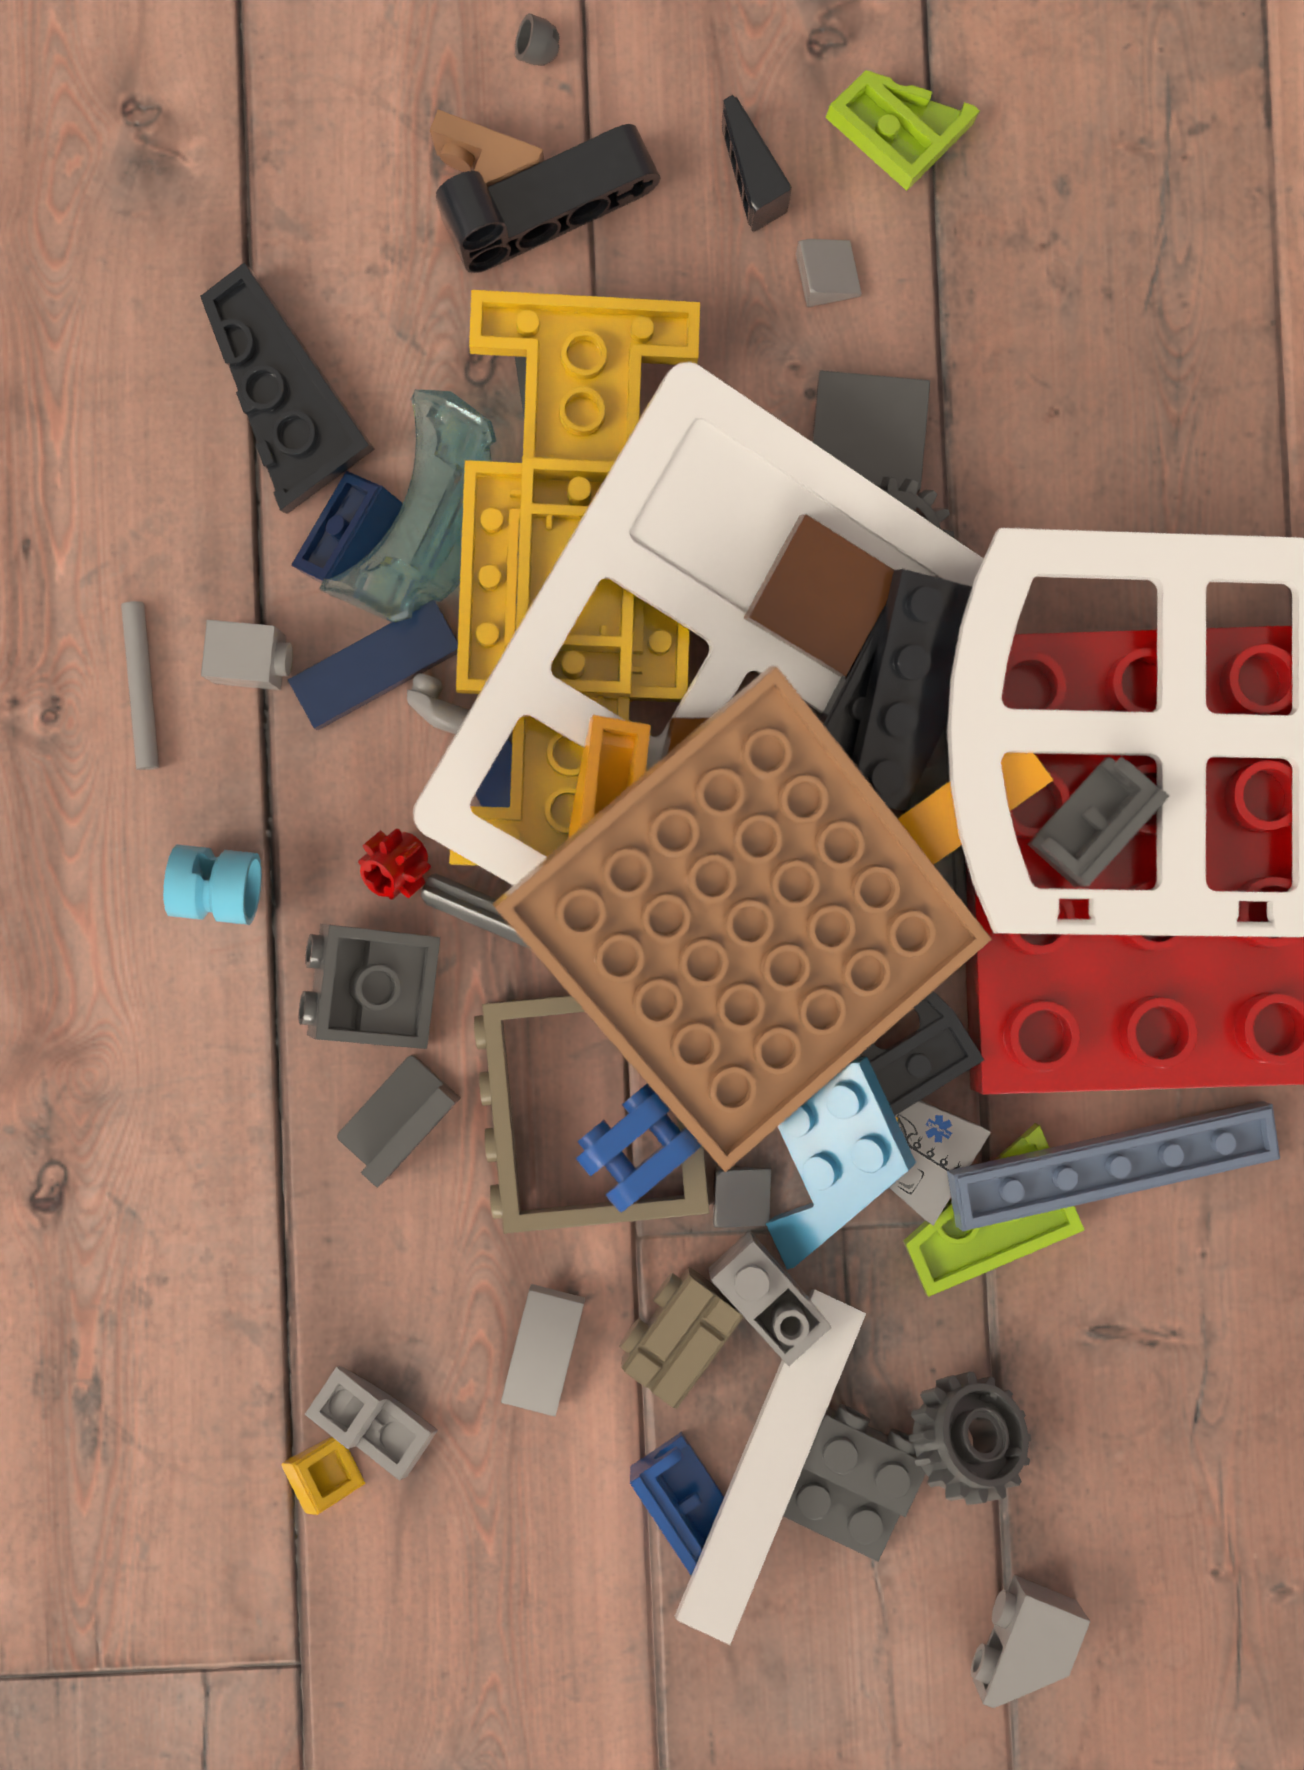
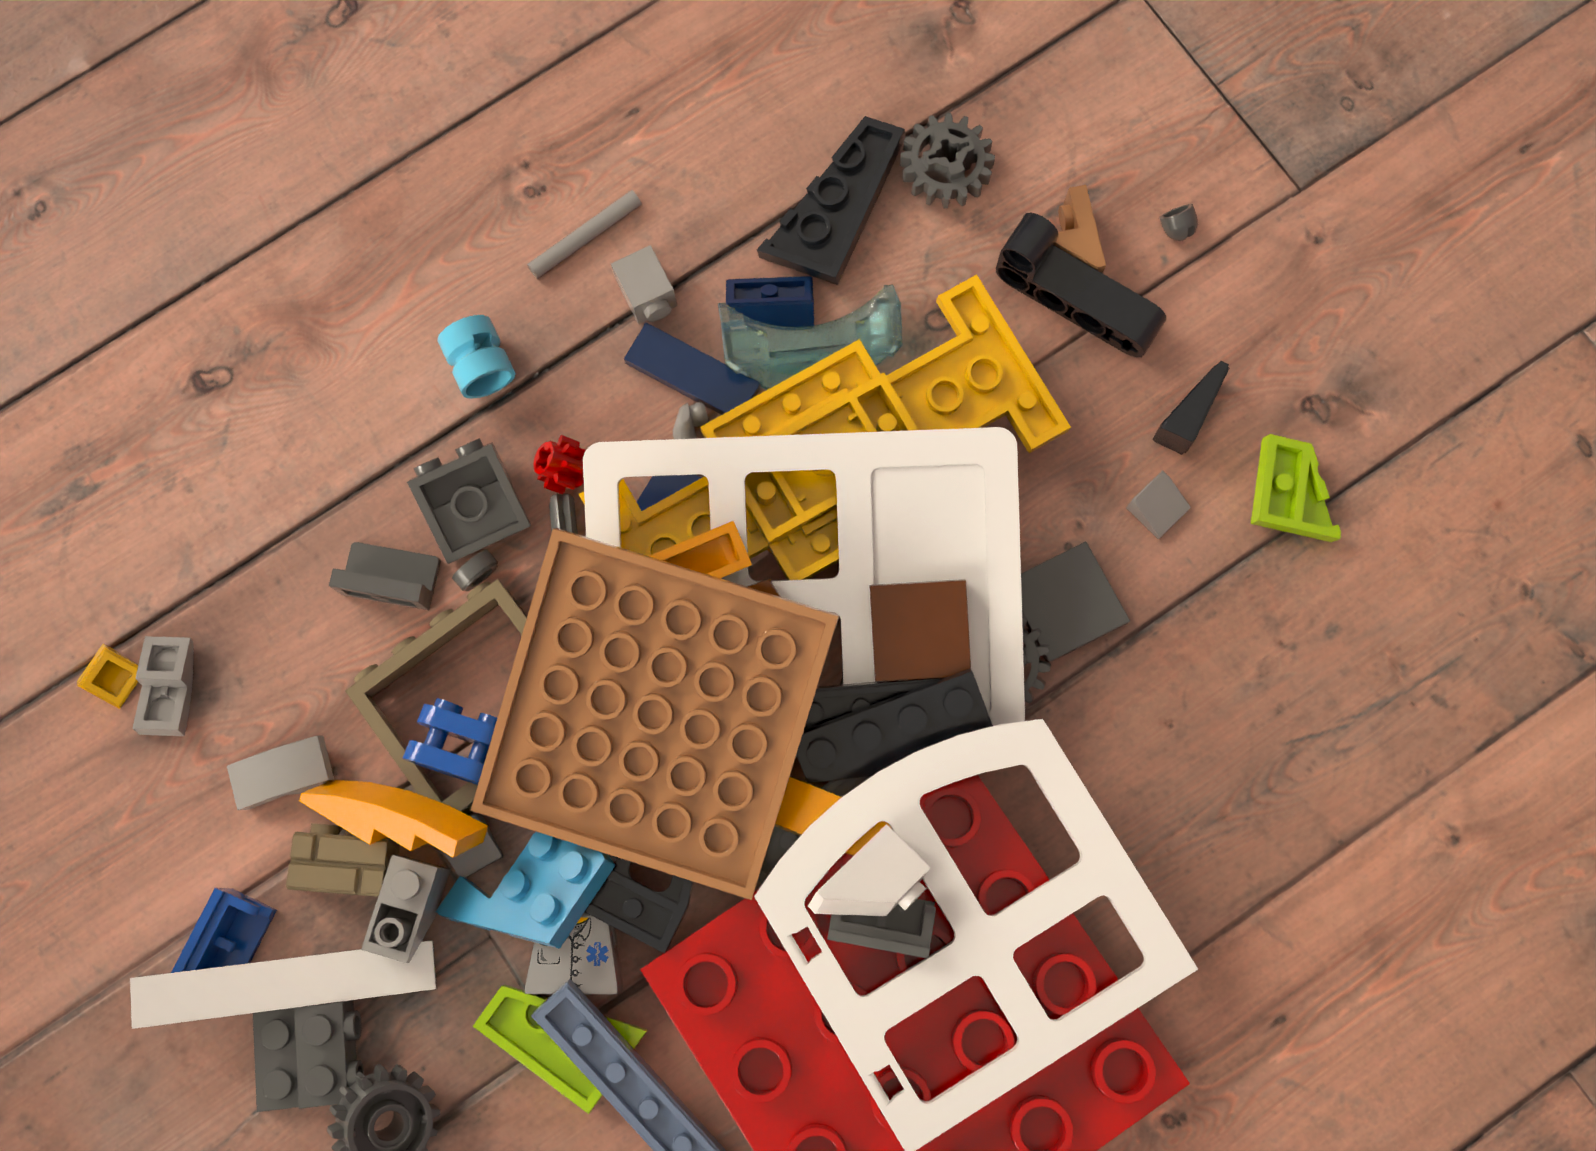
camera: 60 degrees right, 10 degrees down
(293, 222) = (950, 155): none -> dark grey gear
(453, 1023) = (475, 570): none -> dark grey tile
(682, 1243) = (383, 811): none -> light orange slope
(1061, 798) = (874, 879): none -> white slope

